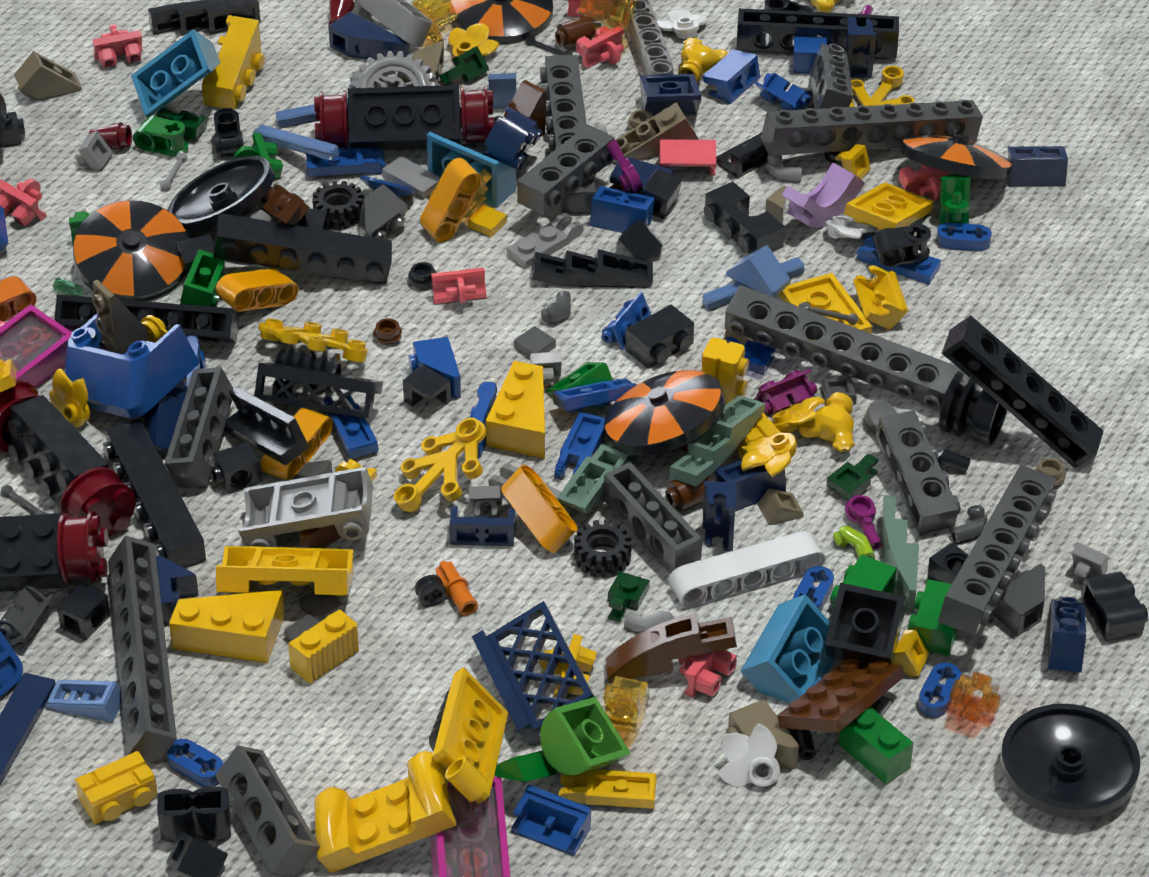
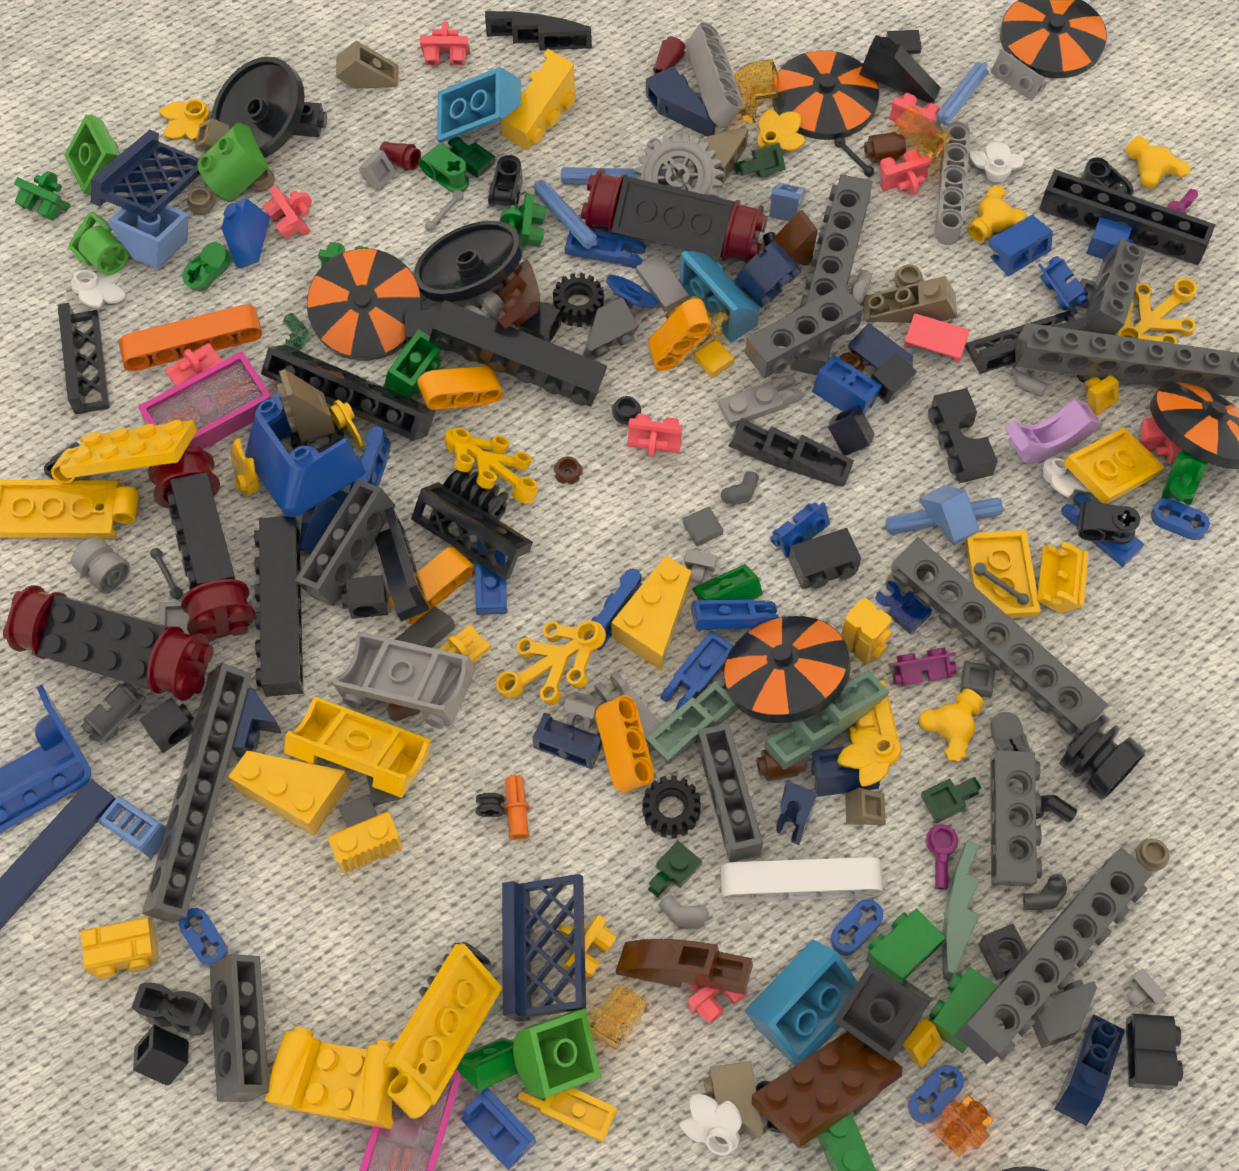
camera: 20 degrees right, 20 degrees up
(426, 384) = (576, 553): black panel -> none
(439, 357) = (596, 528): blue slope -> none
(629, 179) = (864, 357): magenta plate -> none
(665, 90) = (948, 252): dark blue slope -> none
(776, 204) = (997, 428): dark tan slope -> none
(790, 418) = (921, 702): yellow plate -> none
(858, 540) = (924, 876): lime arm -> none
(860, 48) = (1160, 252): dark blue hinge -> none
(1022, 391) = (1152, 771): black brick -> none

